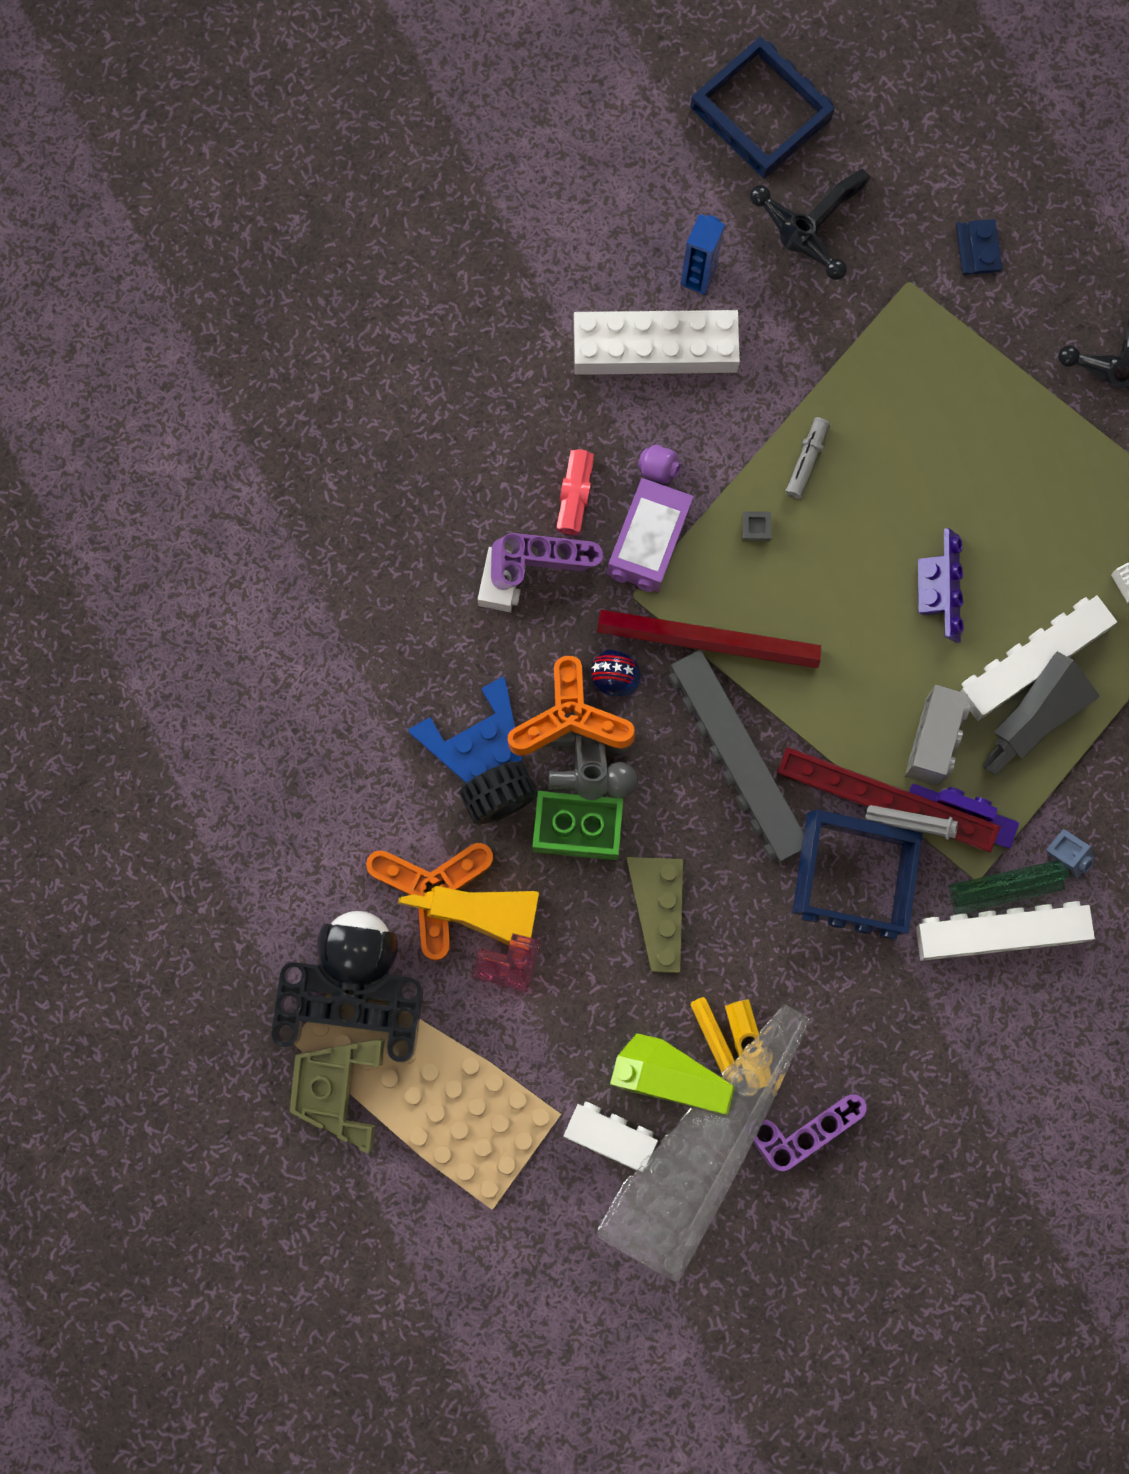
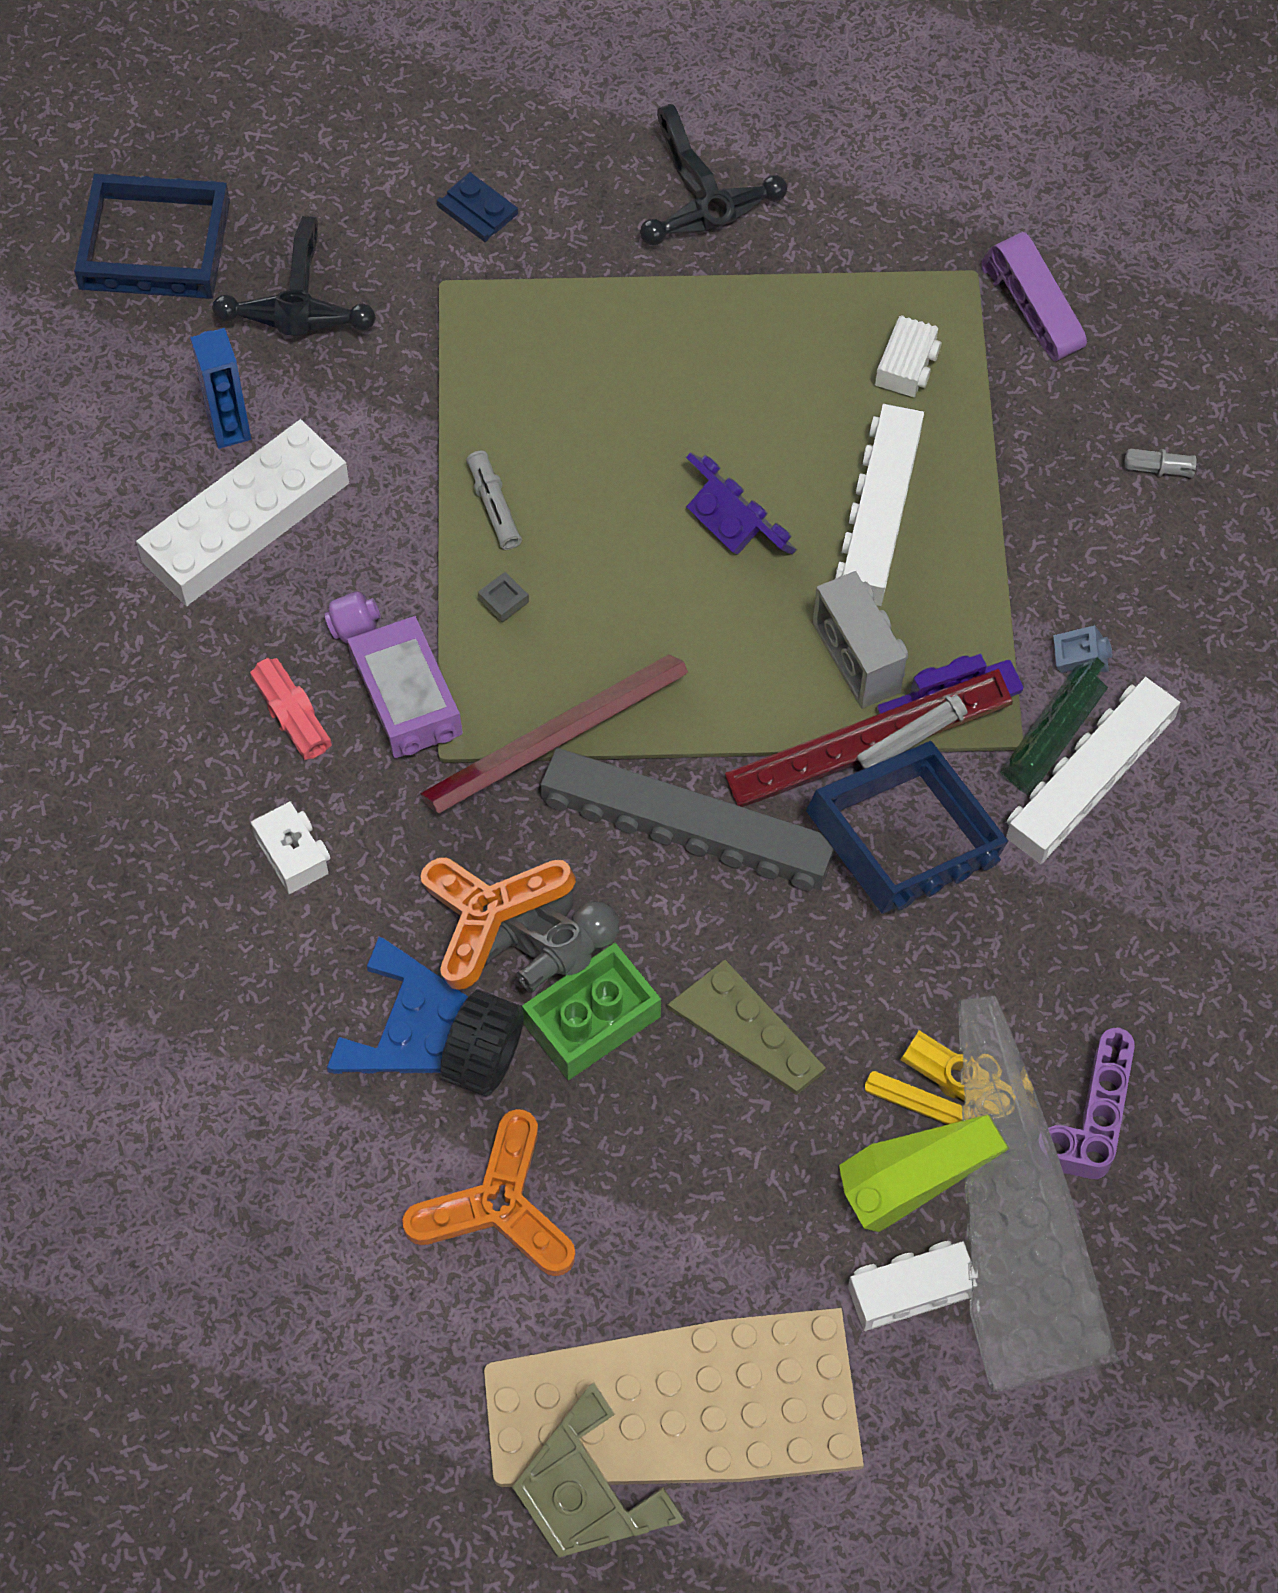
camera: 40 degrees left, 15 degrees down
(353, 956) = (491, 1337): black beam -> none
(486, 912) = (591, 1167): yellow piece -> none
(511, 969) = (658, 1206): clear pink plate -> none
(547, 556) = (290, 794): medium lavender beam -> none
(615, 673) = (490, 840): clear blue helmet -> none
(1052, 700) = (933, 525): dark grey piece -> none

